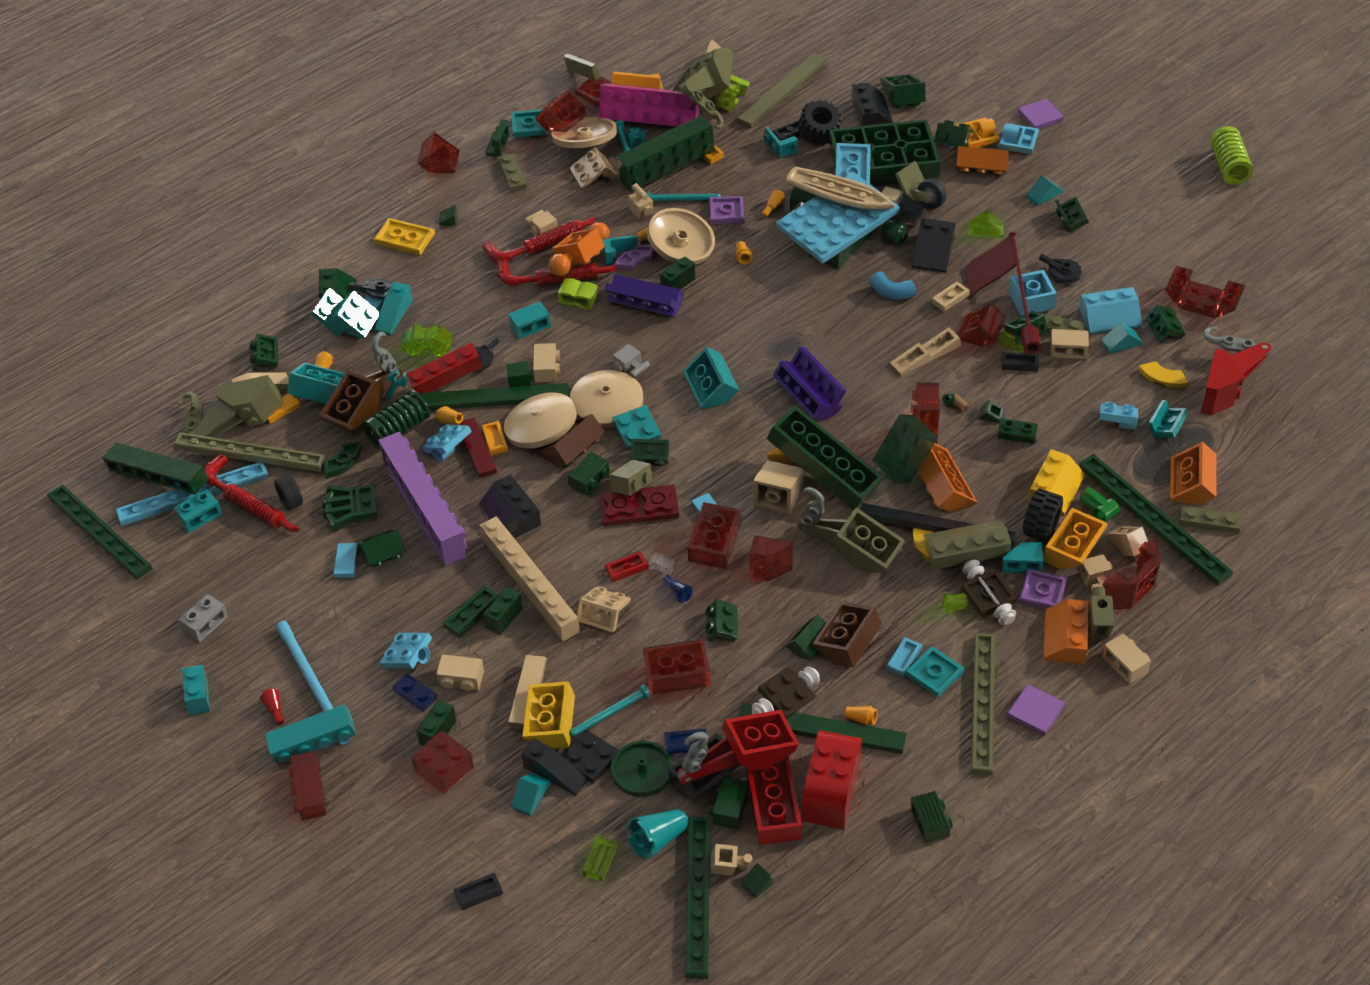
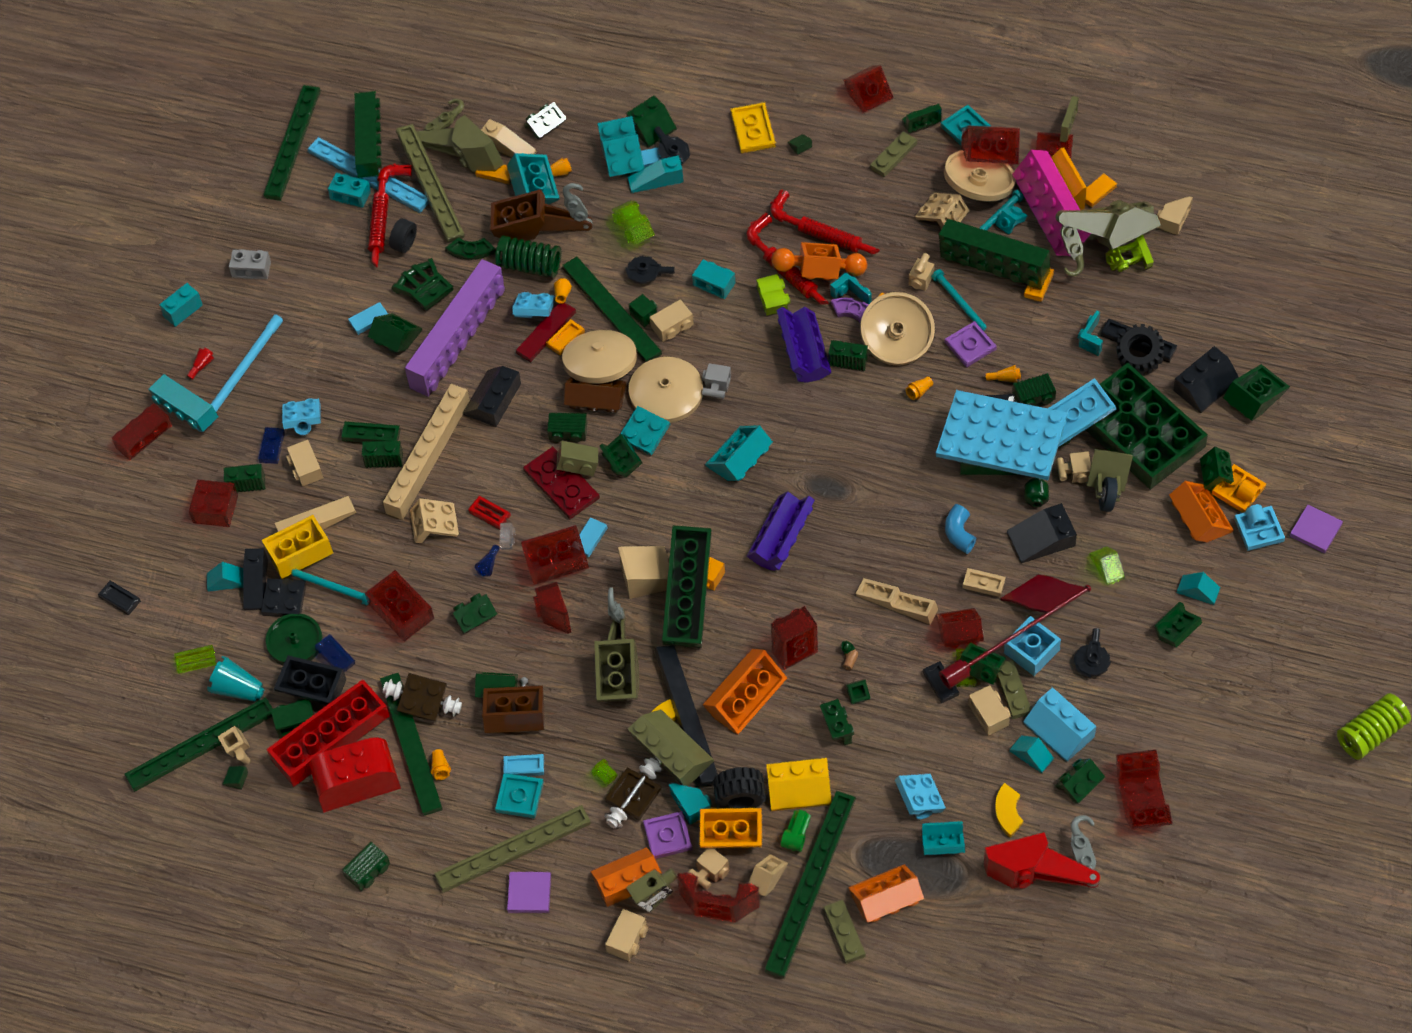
camera: 60 degrees right, 10 degrees up
(395, 383) = (570, 234): teal bar -> none
(445, 369) = (604, 255): red brick -> none
(541, 222) = (839, 215): tan brick -> none
(750, 740) = (327, 692): red slope -> none
(782, 90) = (1177, 294): olive tile -> none
(838, 189) = (1024, 413): tan piece -> none
(904, 449) = (739, 641): clear green brick -> none
(910, 208) = (1066, 487): black torso -> none

